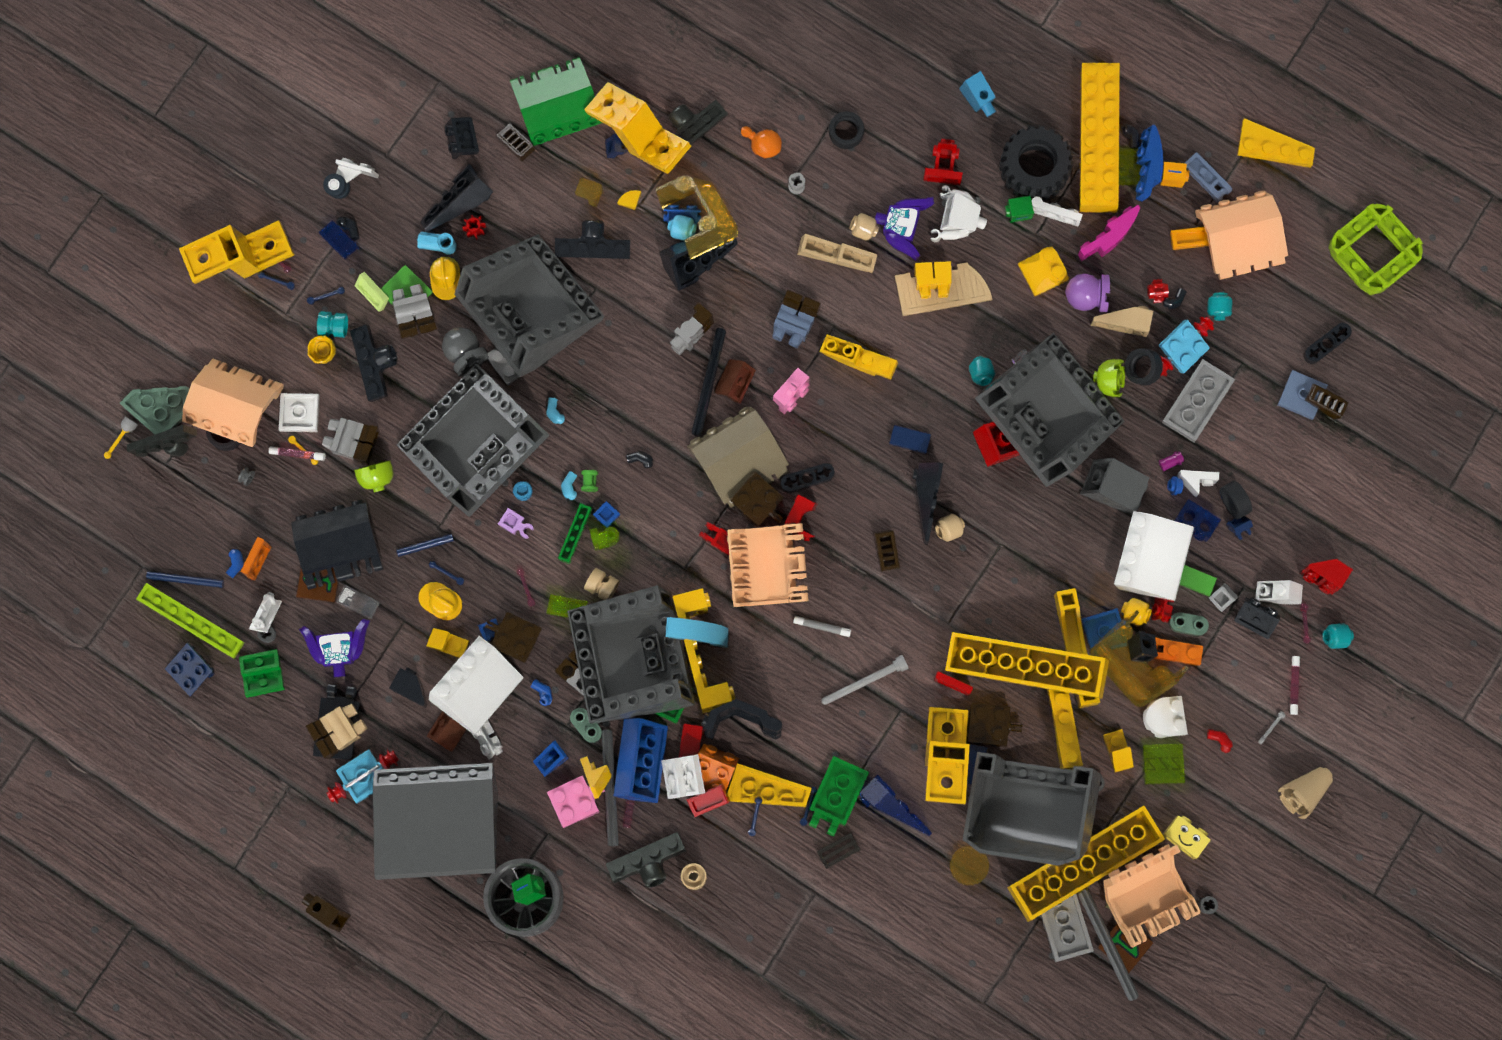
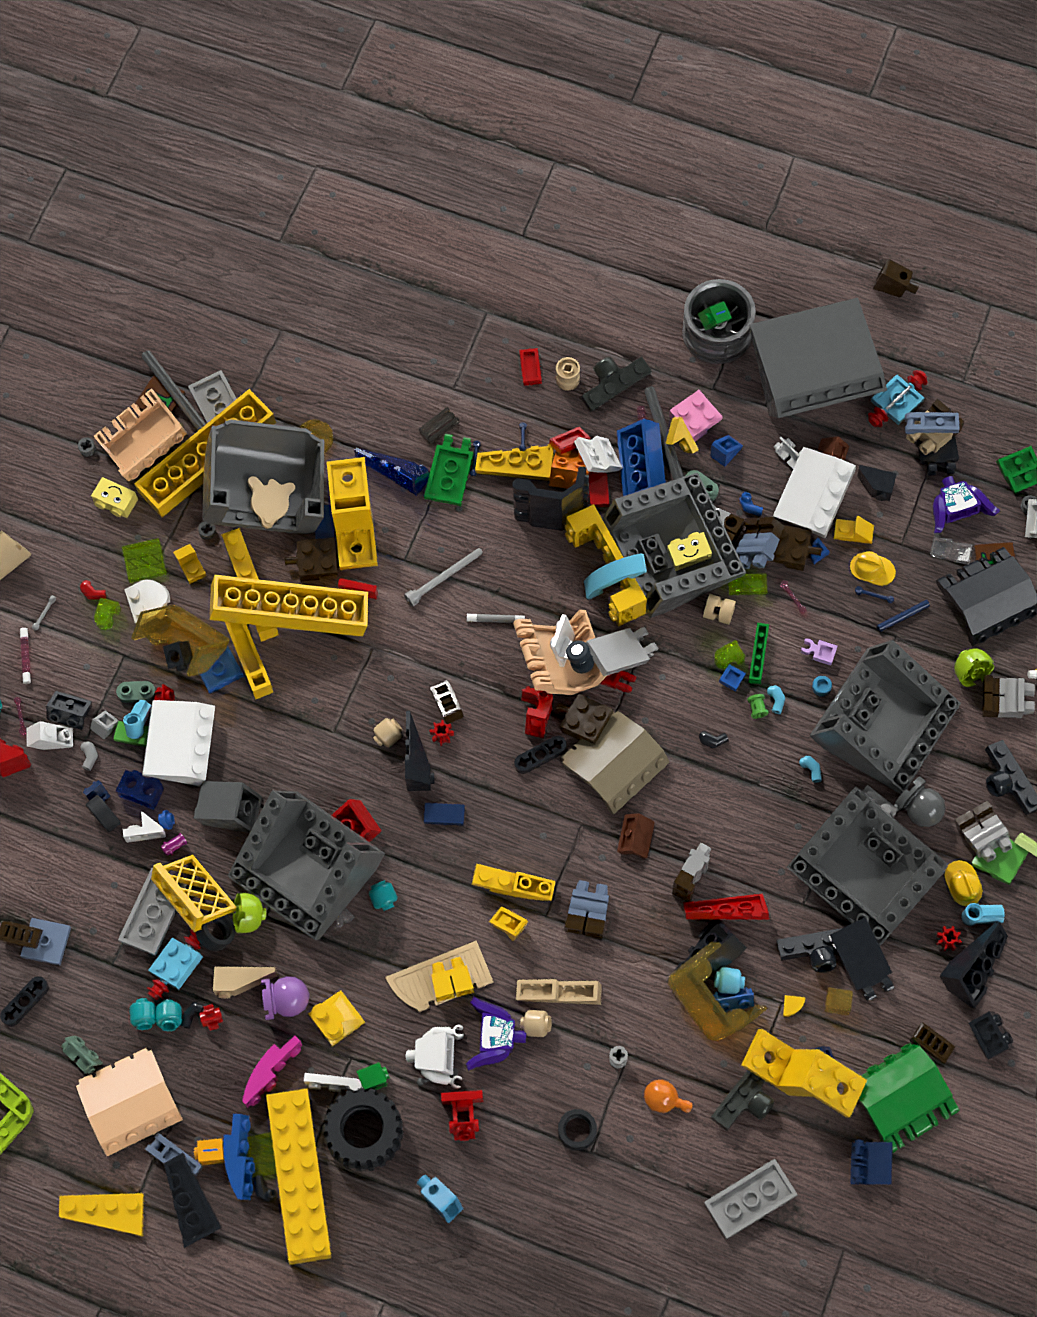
camera: 170 degrees right, 10 degrees down
(337, 726) = (932, 422): none -> sand blue plate
(545, 643) = (759, 541): none -> sand blue hips
(557, 223) = (862, 958): none -> black tile
(598, 50) = (871, 1163): none -> dark blue hinge
(618, 643) = (689, 551): none -> light yellow brick
(664, 292) = (735, 908): none -> red wing
(708, 382) = (662, 830): black axle -> none
(709, 44) = (750, 1199): none -> light grey plate
(709, 556) = (620, 650): none -> light grey tile
(730, 899) = (530, 366): none -> red tile
(754, 550) = (565, 649): none -> plate
(791, 390) = (571, 833): bright pink plate -> none
(870, 319) = (508, 922): none -> yellow slope
(896, 522) = (439, 736): none -> red gear
(1027, 790) = (269, 501): none -> tan tile
(1141, 606) = (189, 689): yellow head -> none
(1175, 400) = (180, 898): none -> yellow fence
(1179, 652) = (143, 664): orange plate -> none
(1189, 238) = (186, 1086): light orange tile -> none
(1191, 591) = (136, 719): none -> medium azure piece
(1196, 301) = (168, 1015): none -> teal head
(1197, 132) = (192, 1207): none -> black wing
(1211, 710) = (104, 613): none -> clear neon green leg
(1240, 568) = (91, 755): none -> light grey arm
(1274, 278) = (75, 1047): none -> sand green hinge

